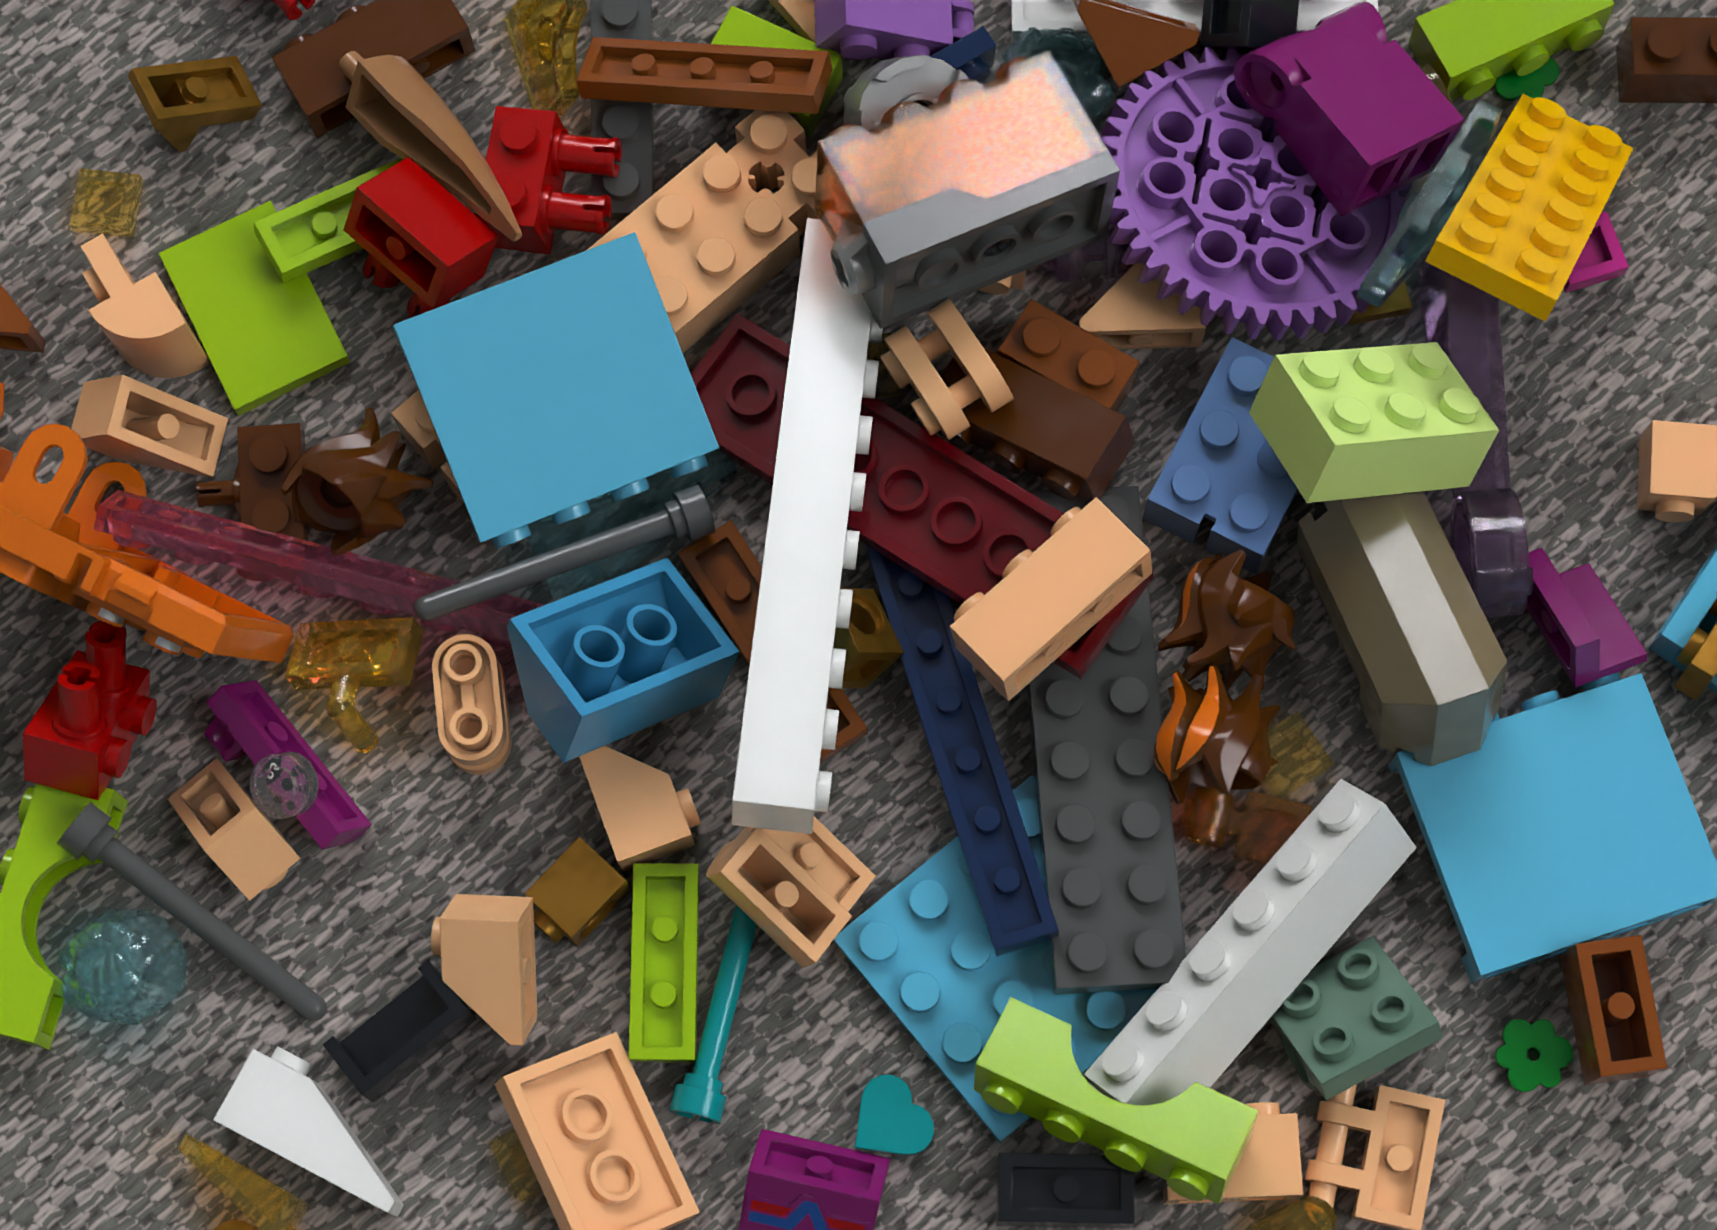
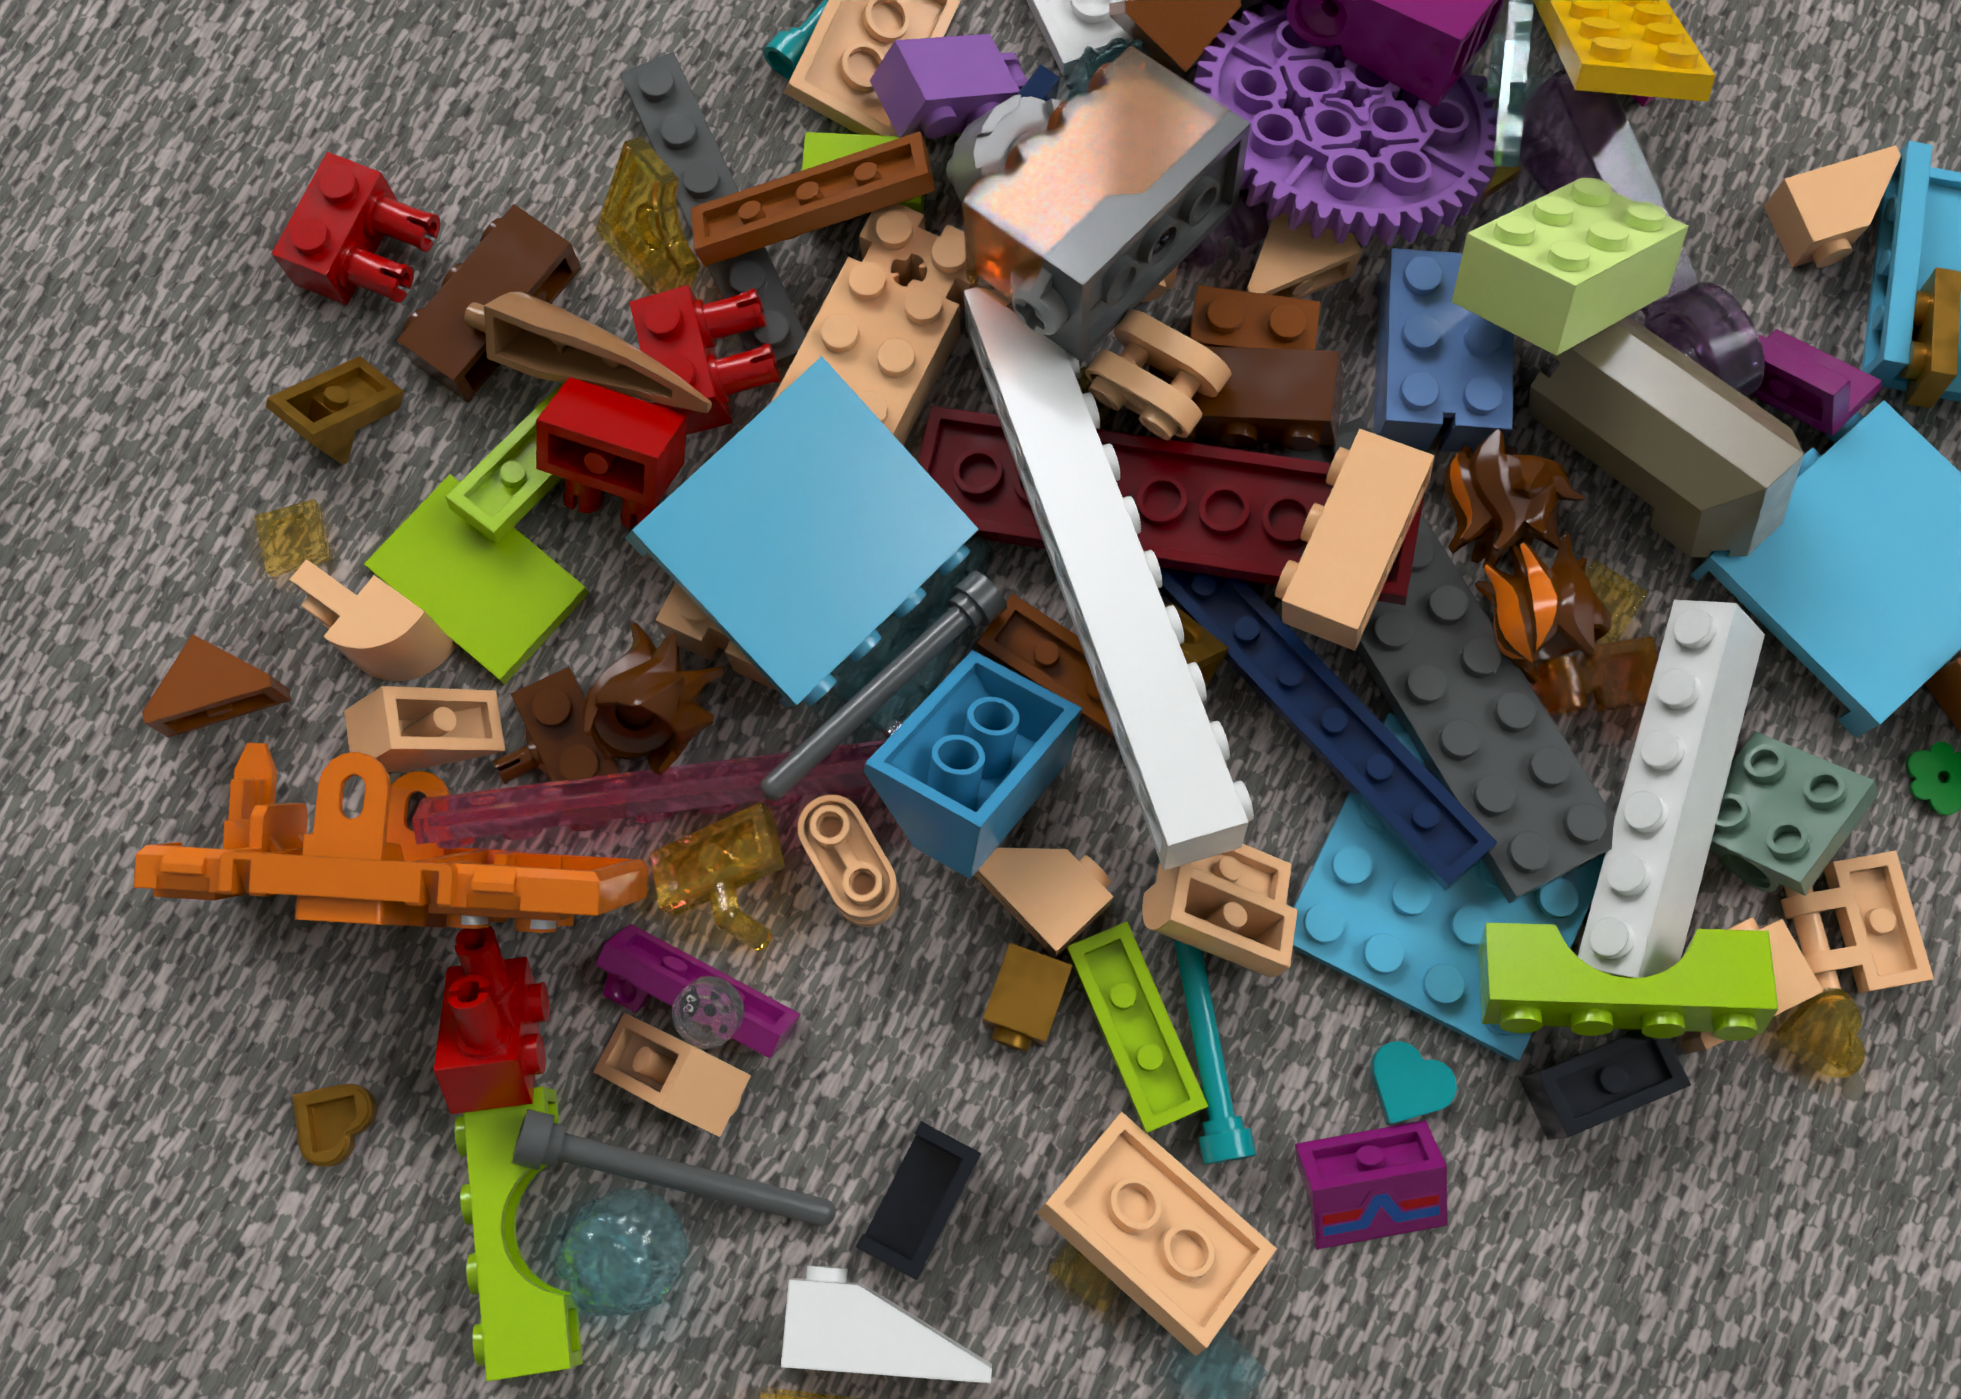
camera: 25 degrees left, 0 degrees up
(491, 959) = (977, 1094): light nougat slope -> none

